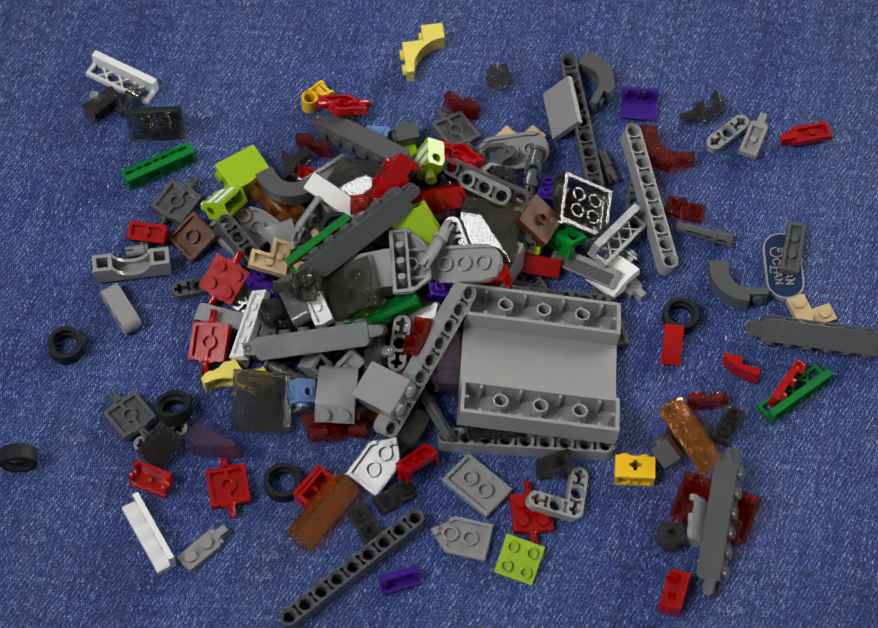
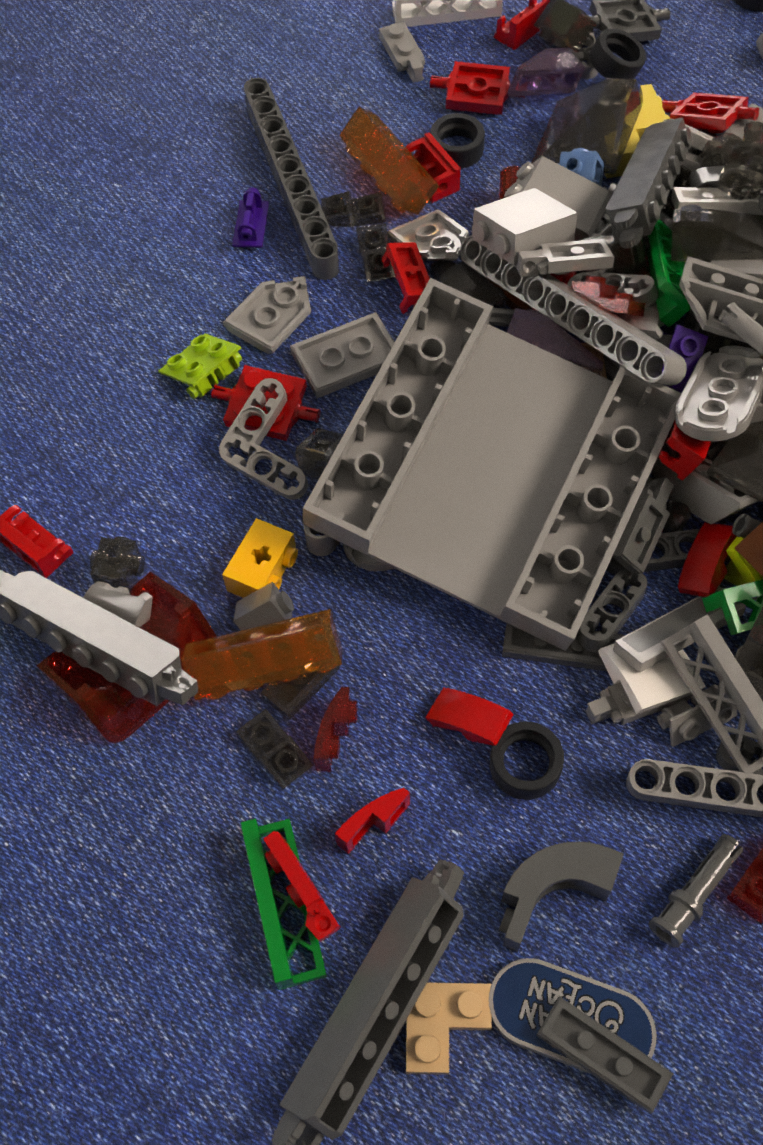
camera: 115 degrees right, 0 degrees up
(401, 359) = (565, 258): none -> light grey hinge

